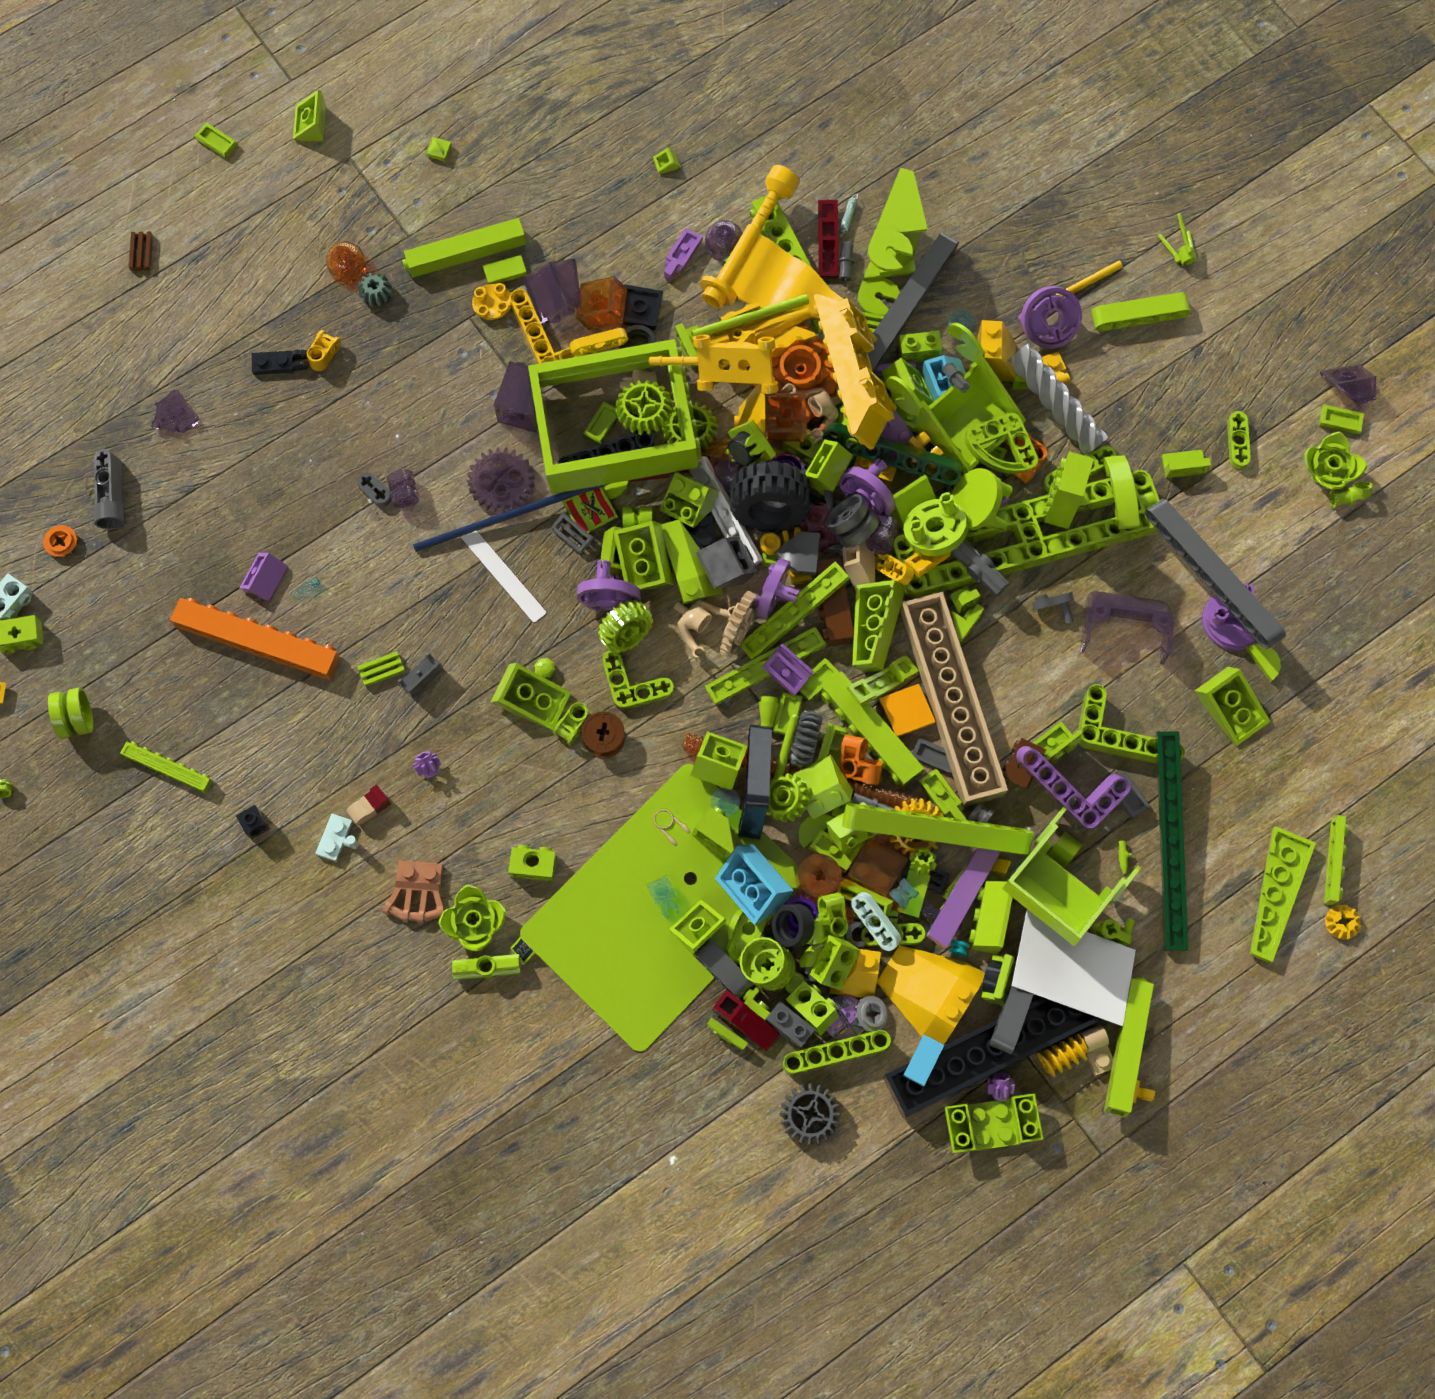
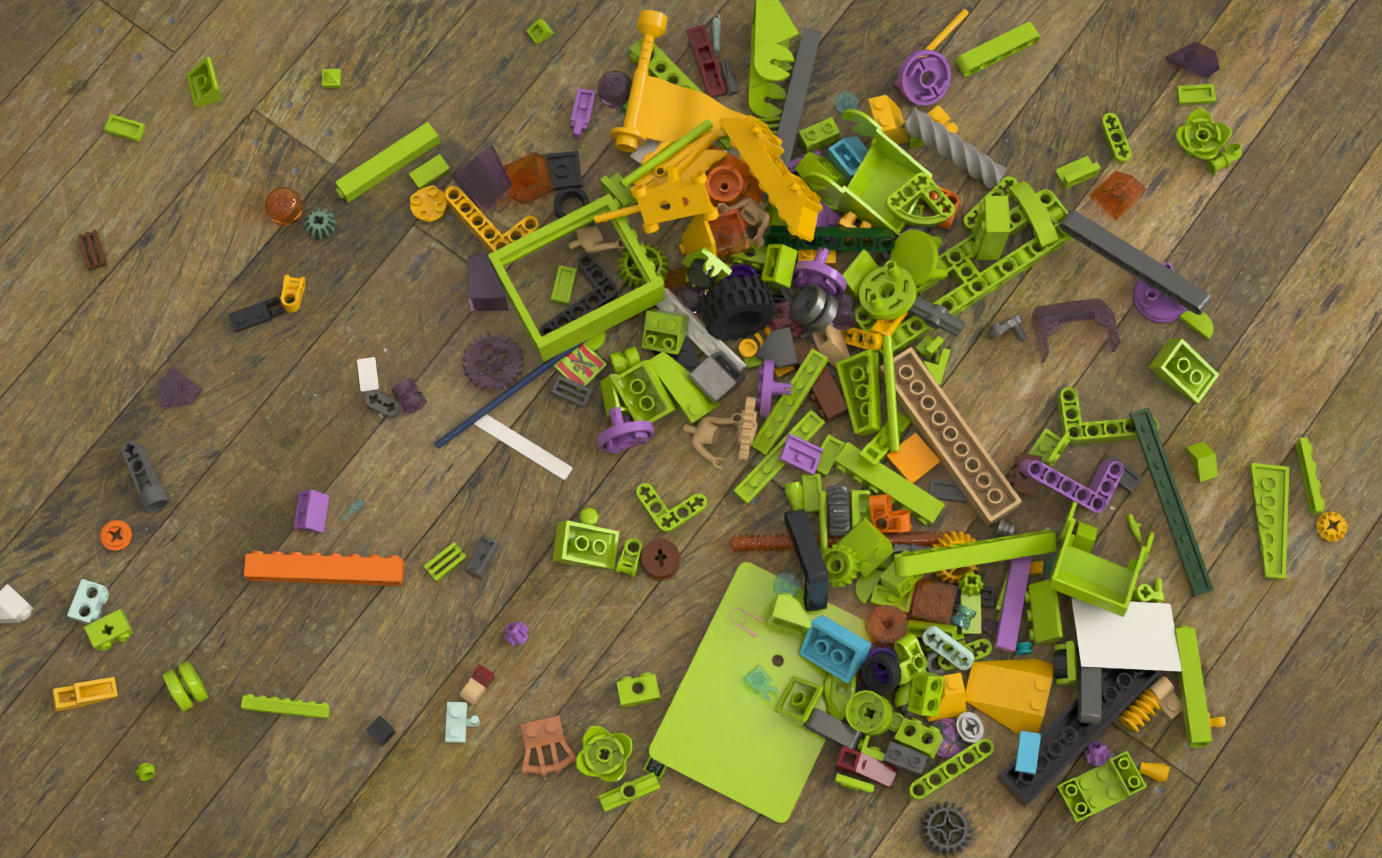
camera: 20 degrees left, 0 degrees up
(370, 455) = (367, 374): none -> white sticker
(598, 342) = (539, 214): yellow beam -> none
(625, 626) = (649, 459): lime gear -> none
(634, 400) = (597, 264): lime gear -> none
(719, 760) = (770, 551): lime slope -> none
(904, 633) = (891, 393): none -> lime piece
(942, 795) = (967, 522): lime hinge -> none
(956, 377) = (862, 155): dark grey axle -> none
(1059, 1125) = (1156, 771): none -> yellow cone
(1222, 499) = (1118, 193): none -> clear orange slope
(1222, 809) = (1203, 461): none -> lime slope

